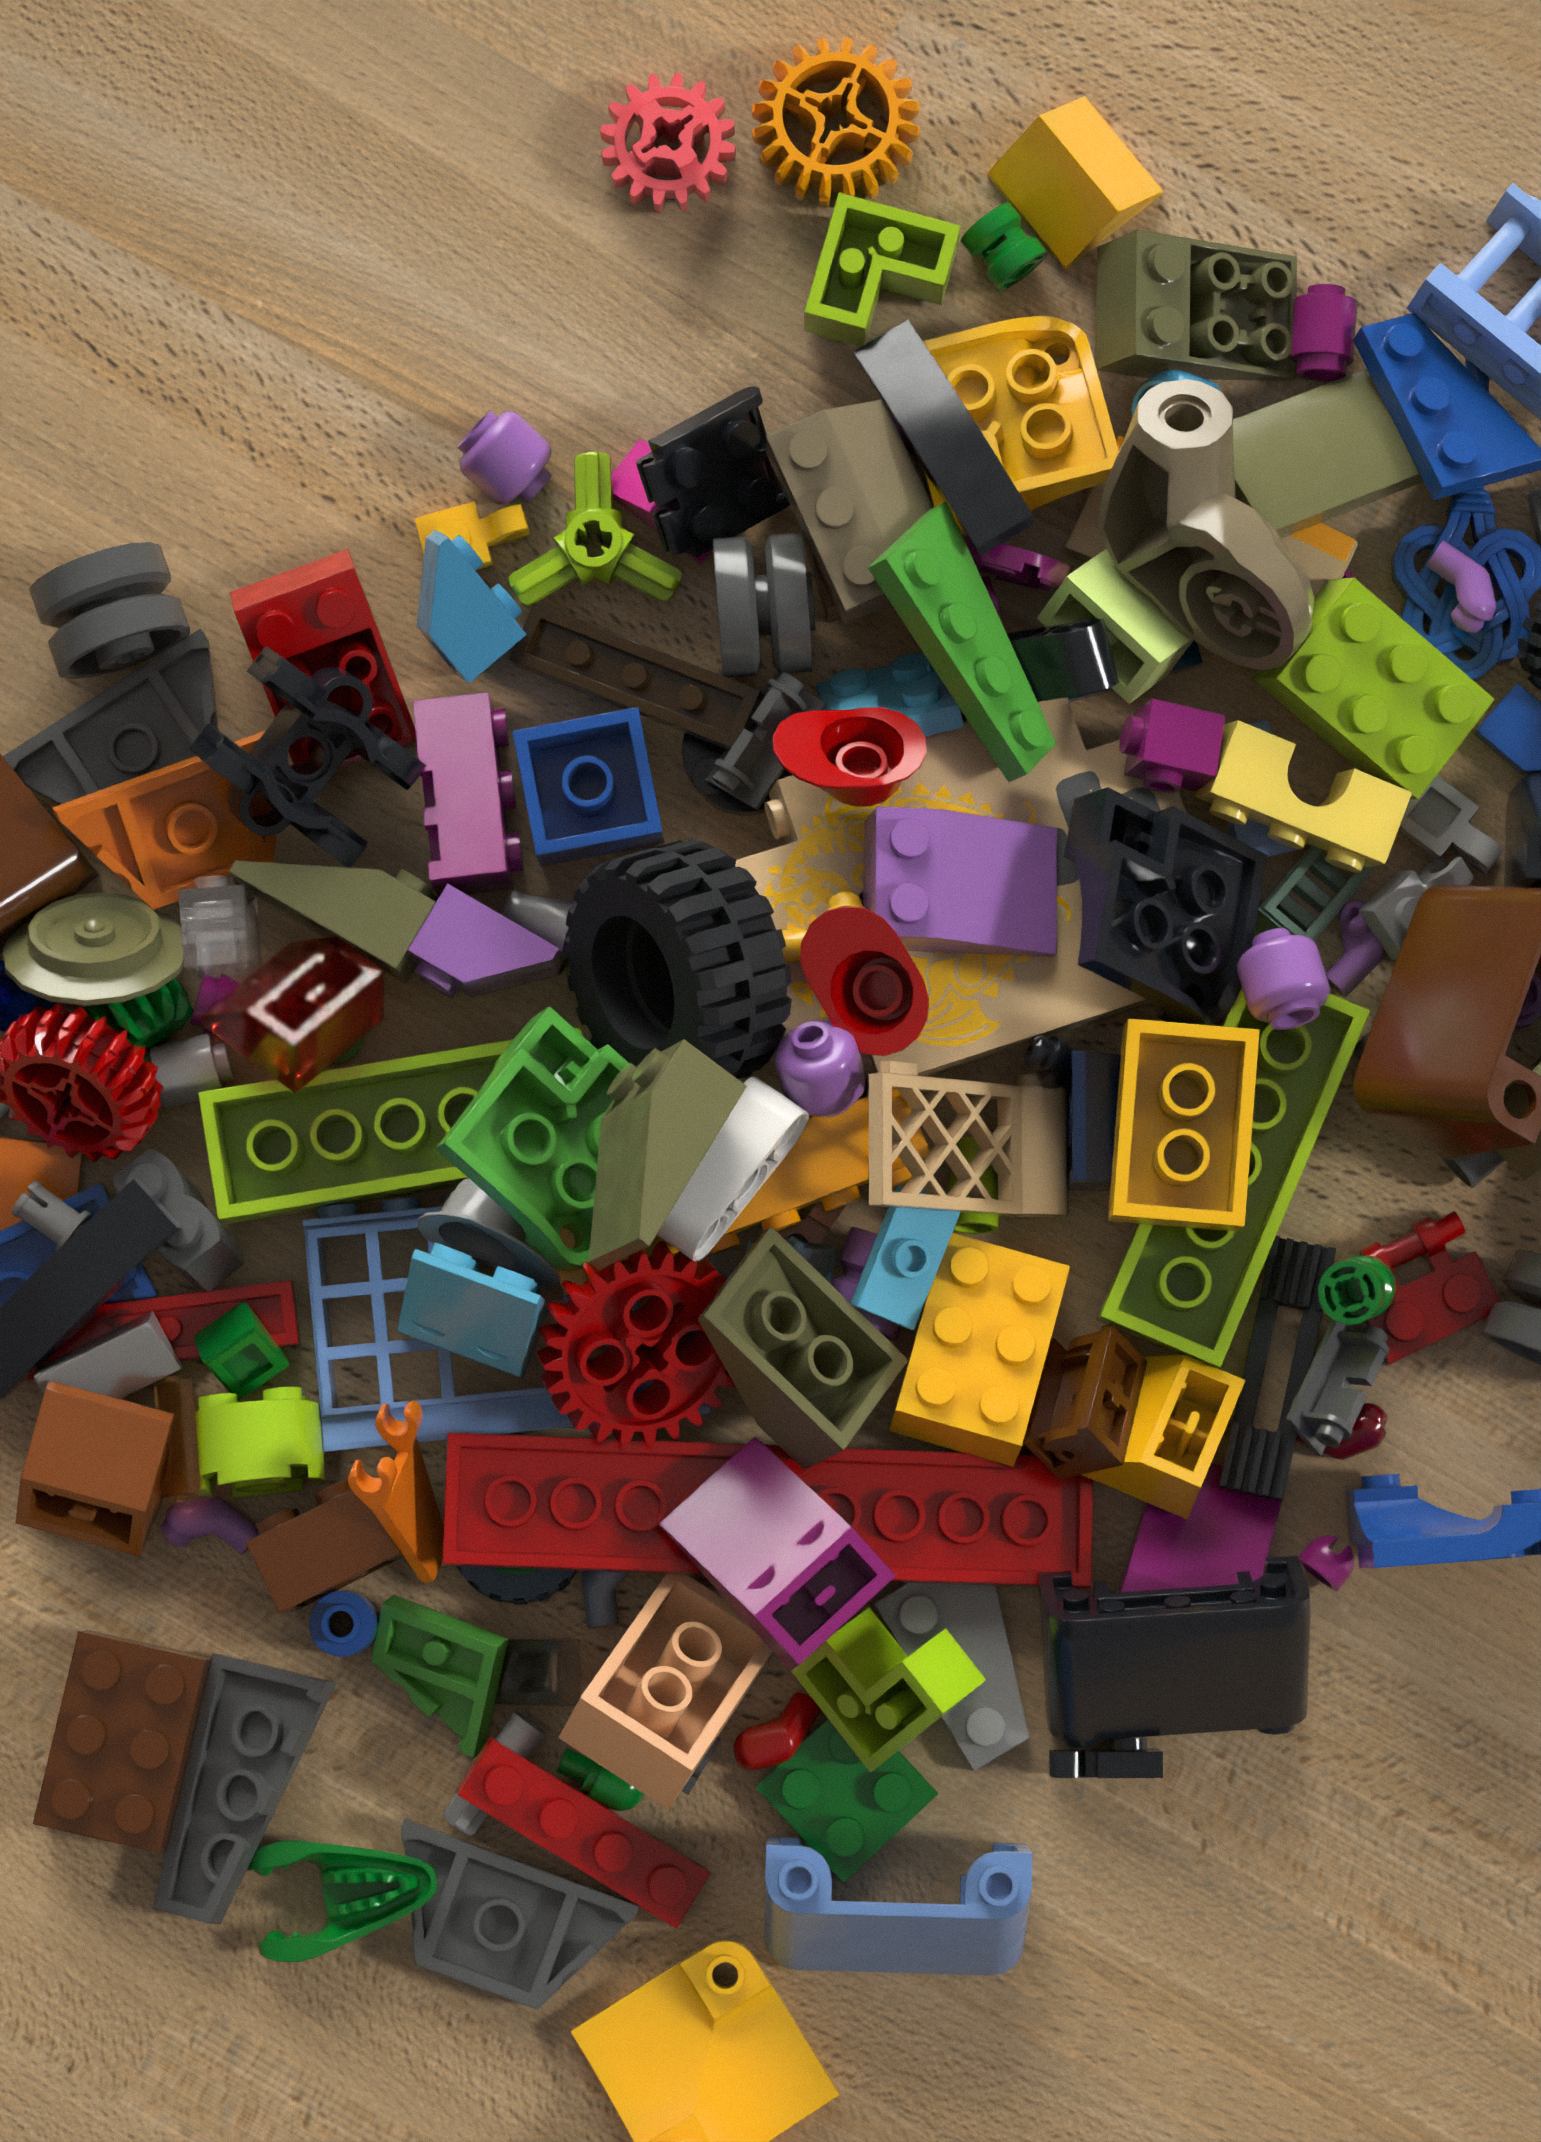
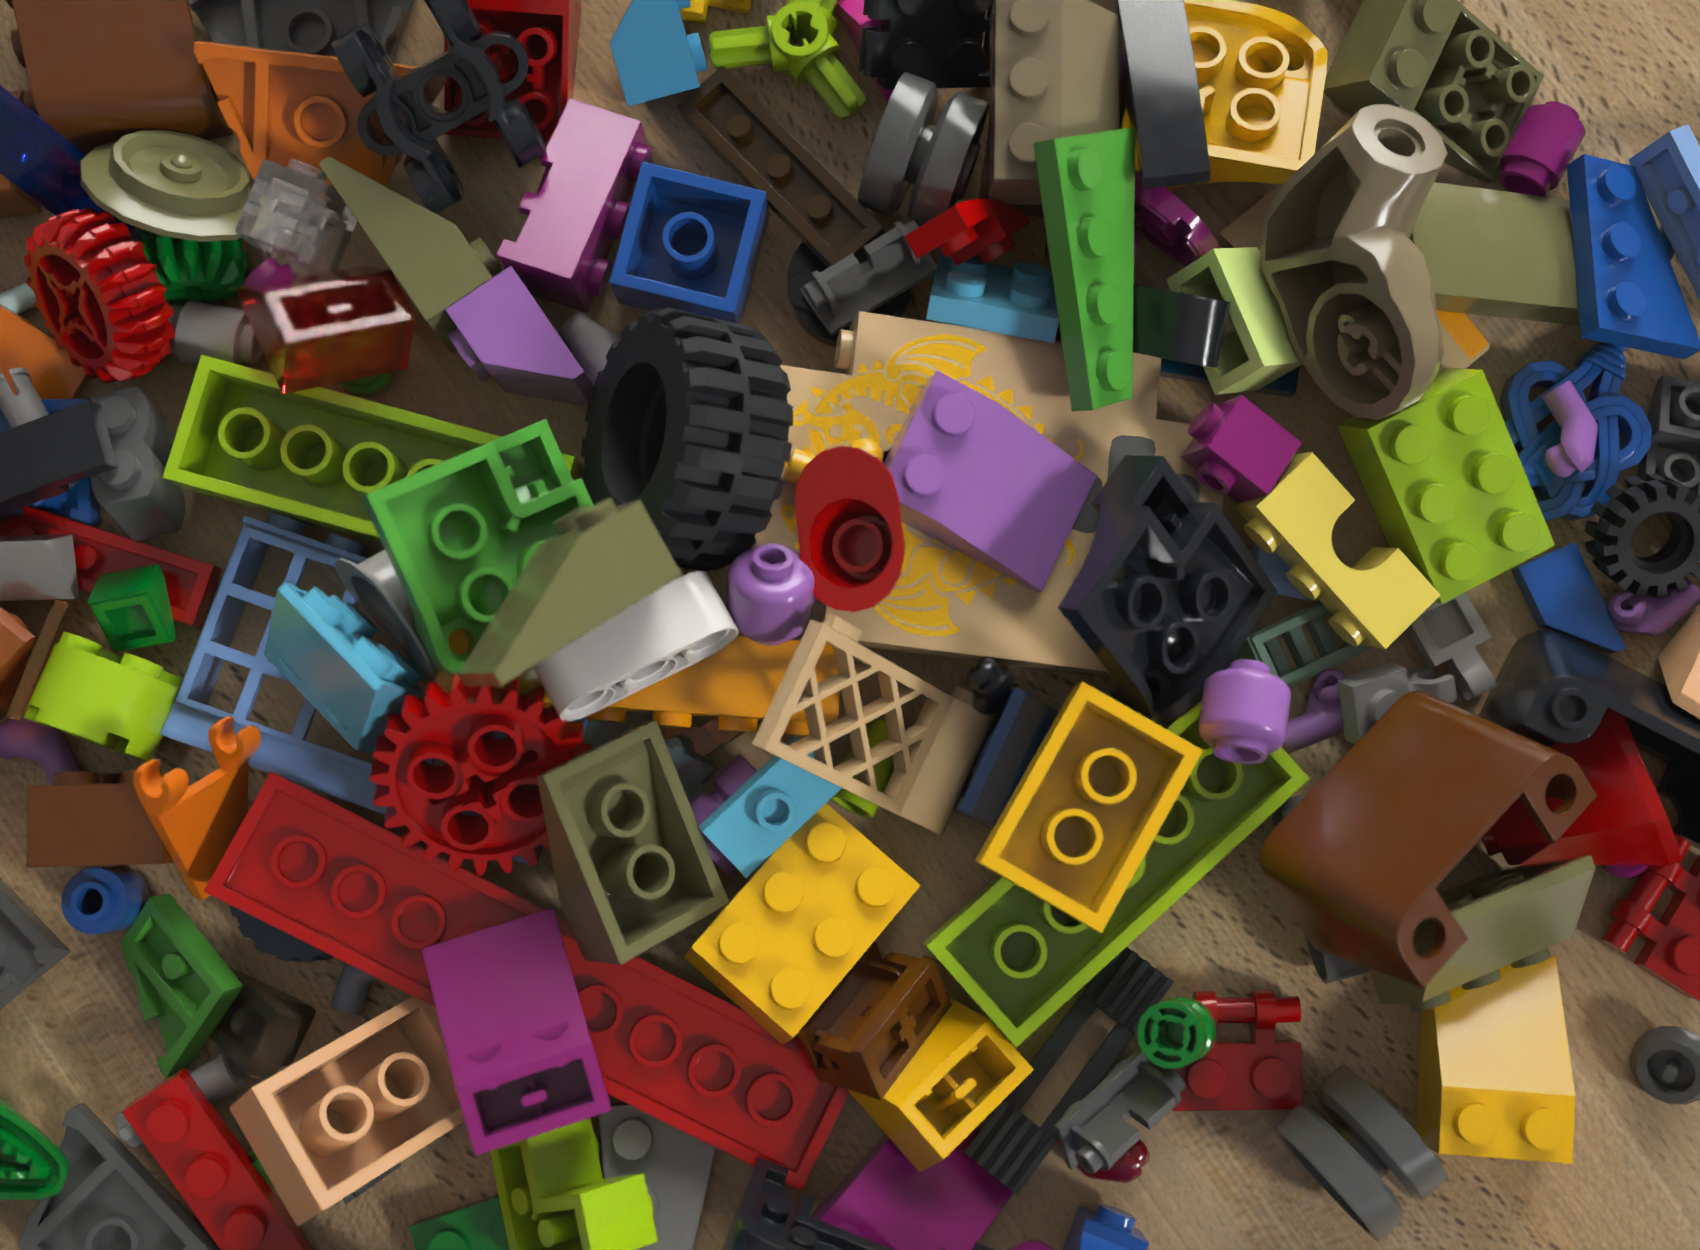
camera: 20 degrees right, 0 degrees up
(777, 1739) = (448, 1192): red arm -> none
(848, 654) = (969, 230): none -> red slope
(851, 753) = (936, 315): red piece -> none

